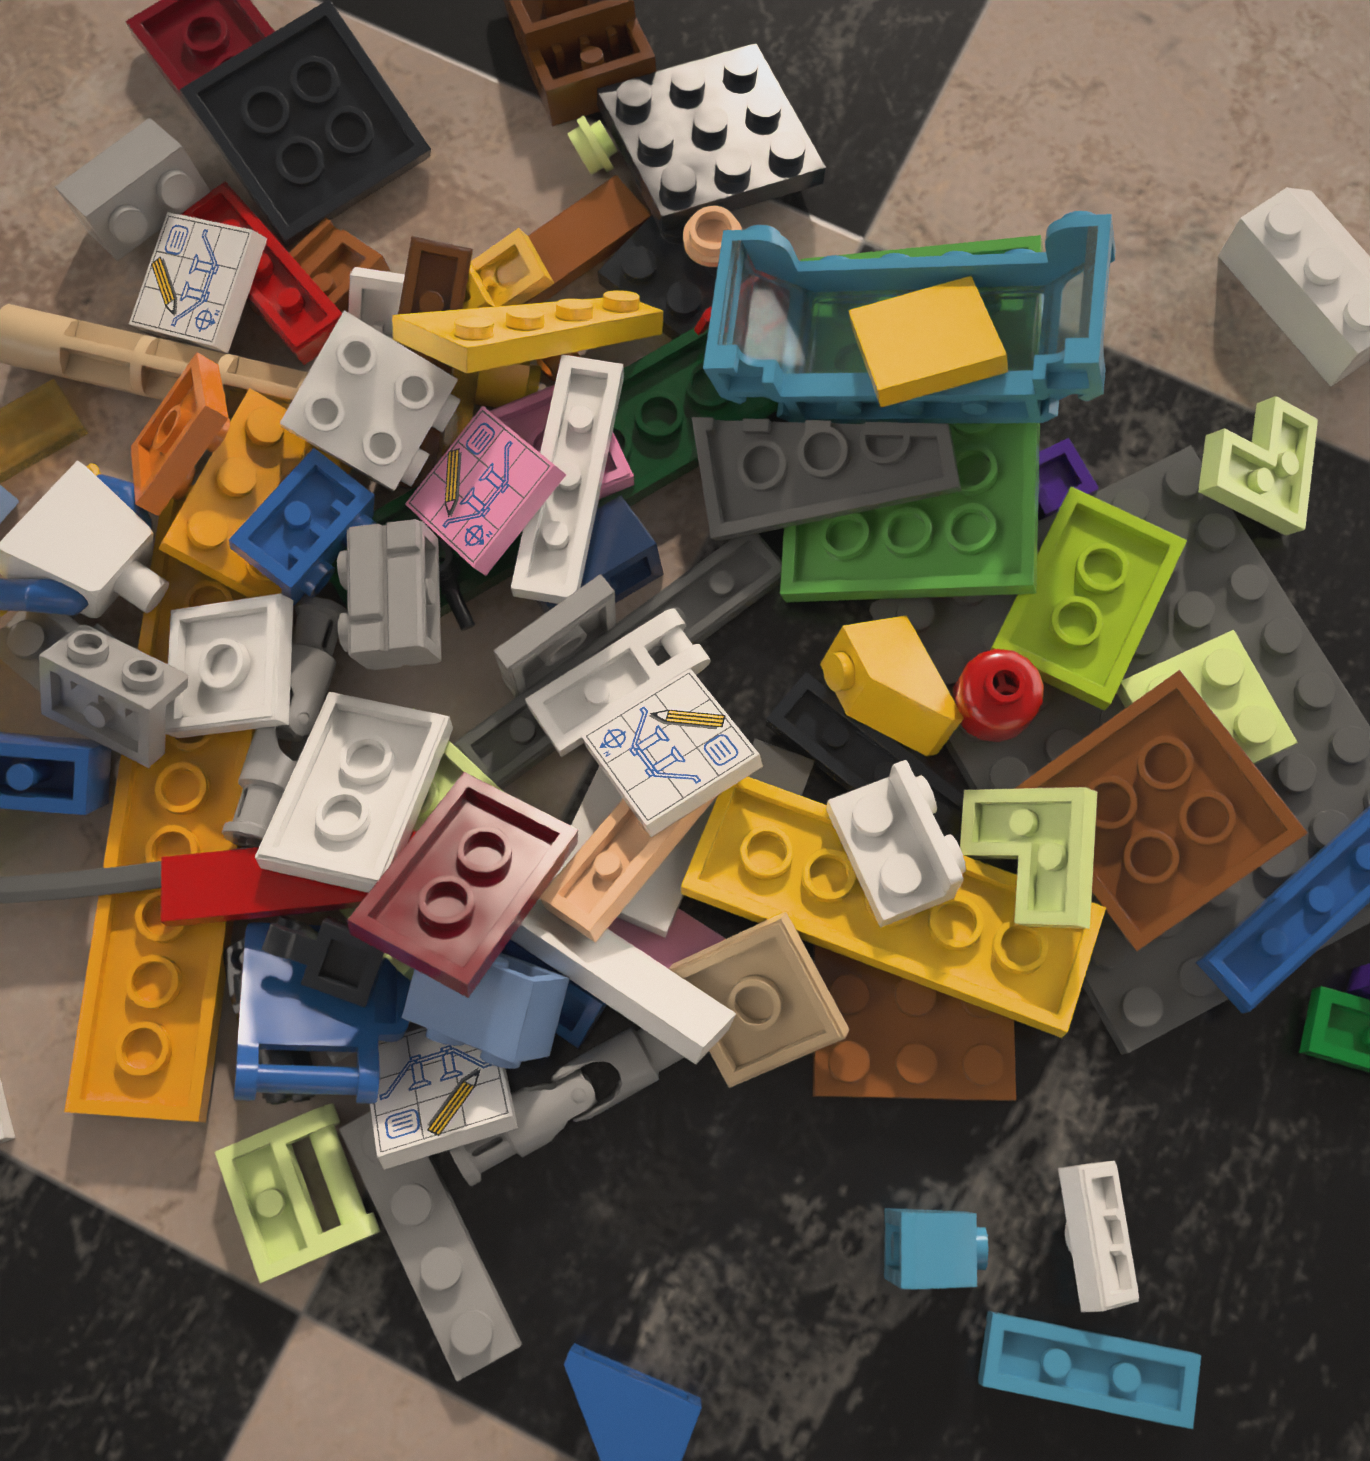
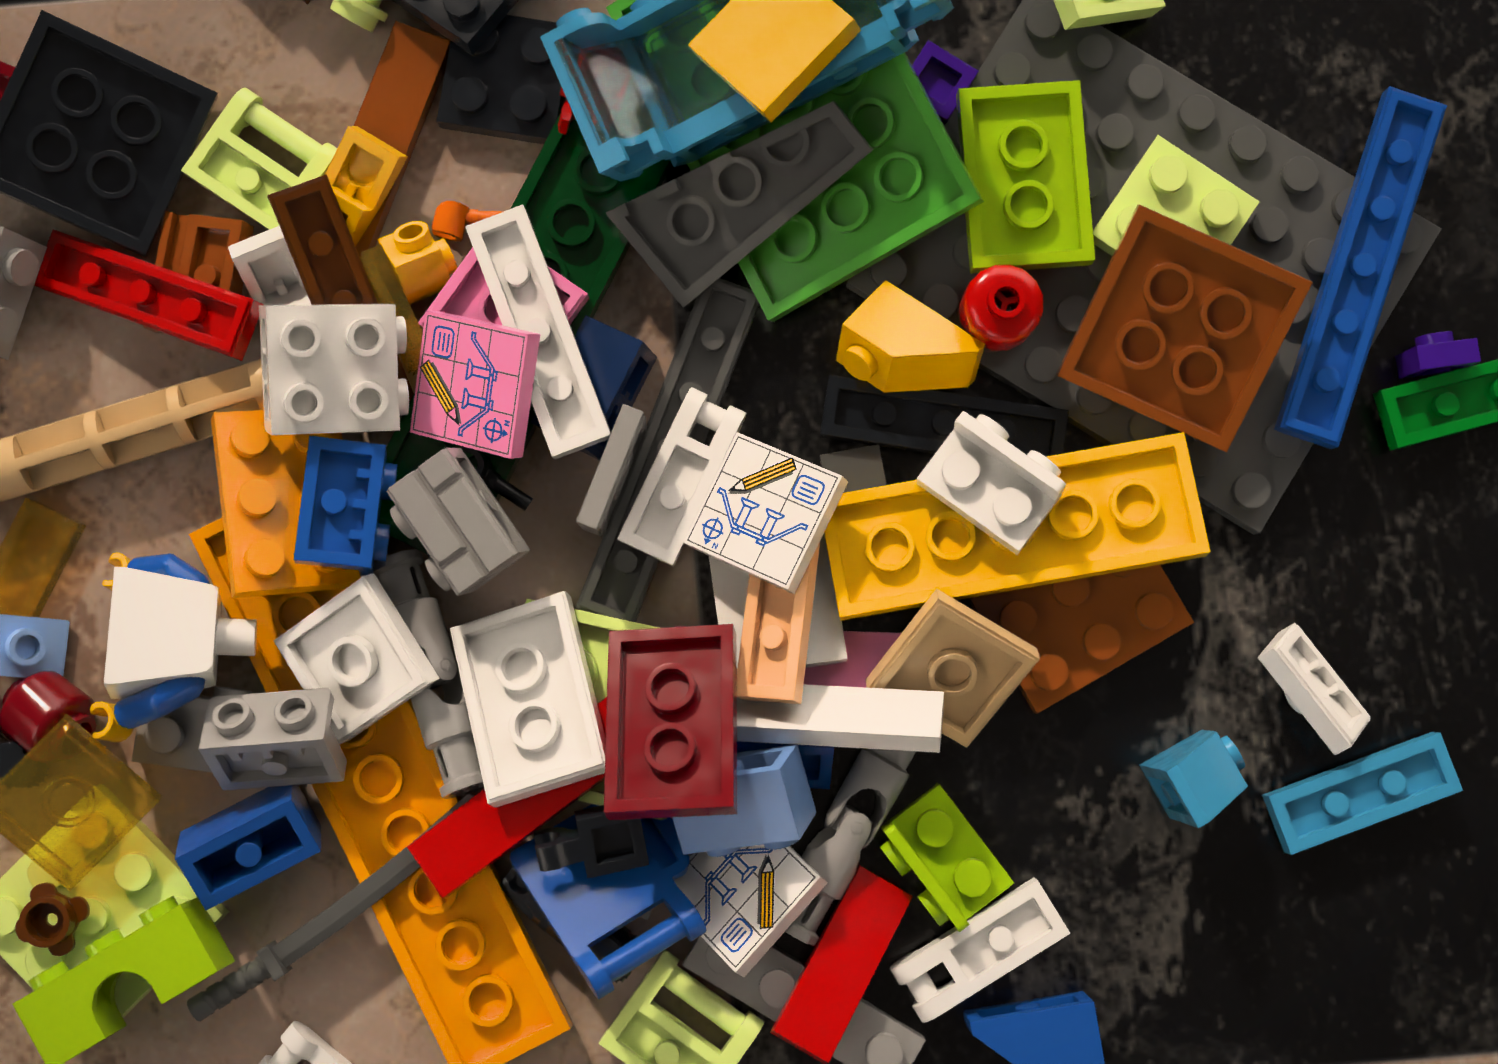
camera: 30 degrees left, 10 degrees up
(178, 434) = (181, 489): orange plate -> none
(198, 281) = (96, 339): white tile -> none
(403, 210) = (243, 173): none -> yellowish green plate
(483, 1219) = (841, 965): none -> red tile
(526, 332) = (417, 226): yellow wing -> none
(626, 1291) = (984, 951): none -> white plate
(645, 1180) = (946, 858): none -> lime bracket
(704, 234) = (518, 35): light nougat plate -> none
(1051, 838) = (1117, 408): yellowish green plate -> none

